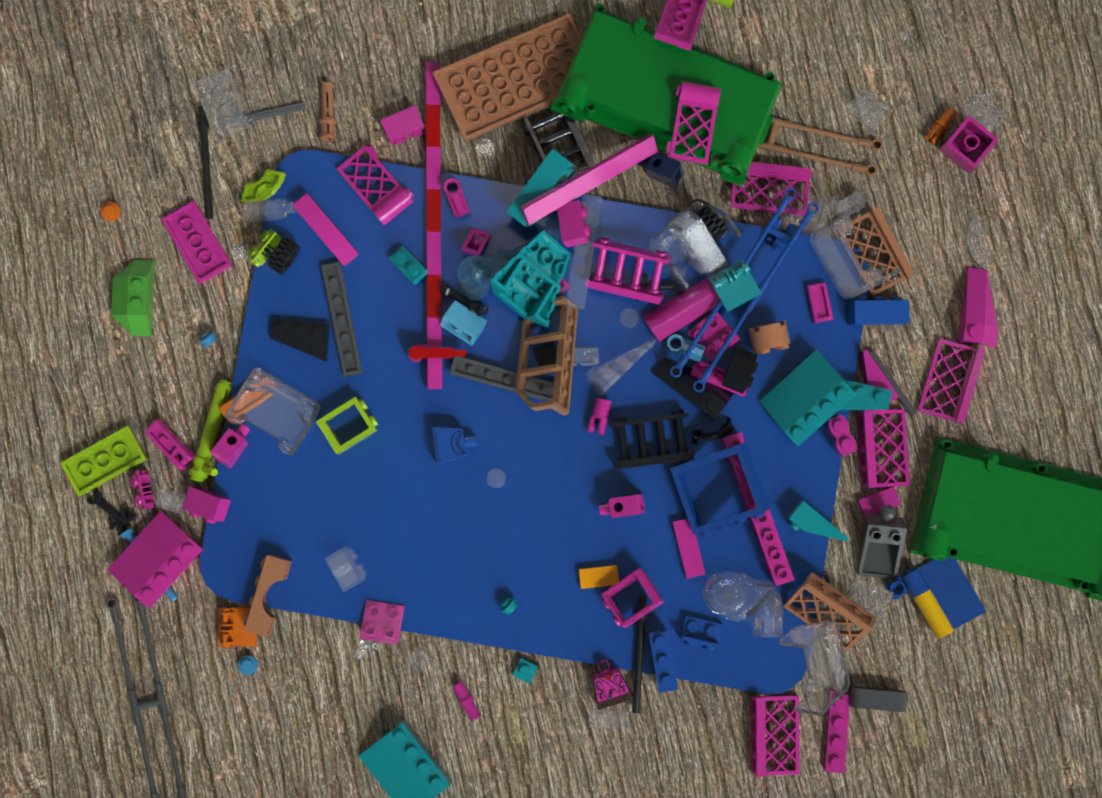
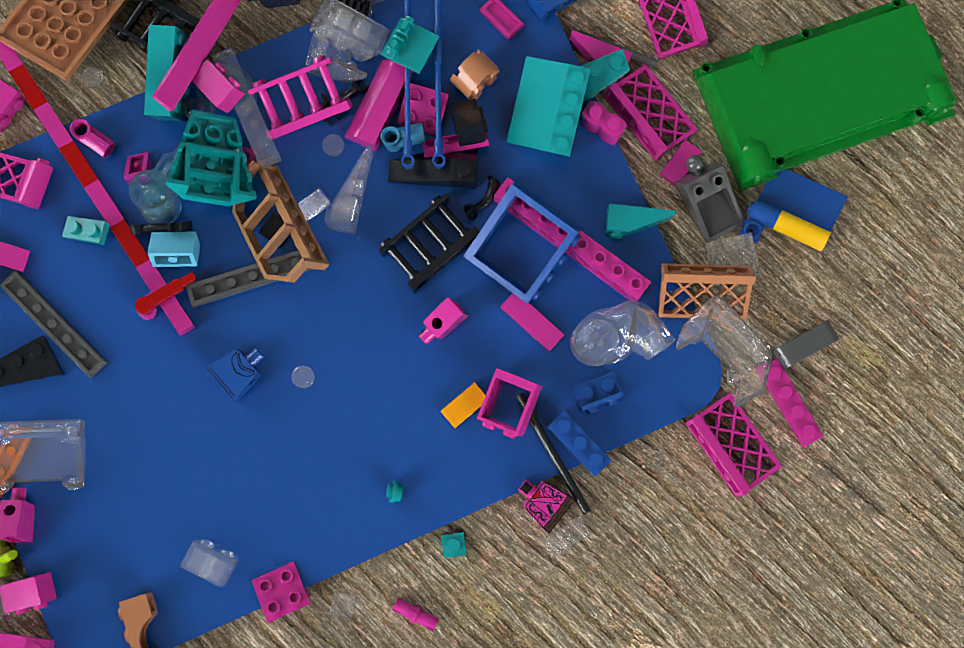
camera: 35 degrees left, 5 degrees down
(331, 436) = (139, 430): lime window -> none
(365, 645) = (280, 627): clear arm -> none
(601, 412) = (362, 249): dark pink hinge -> none

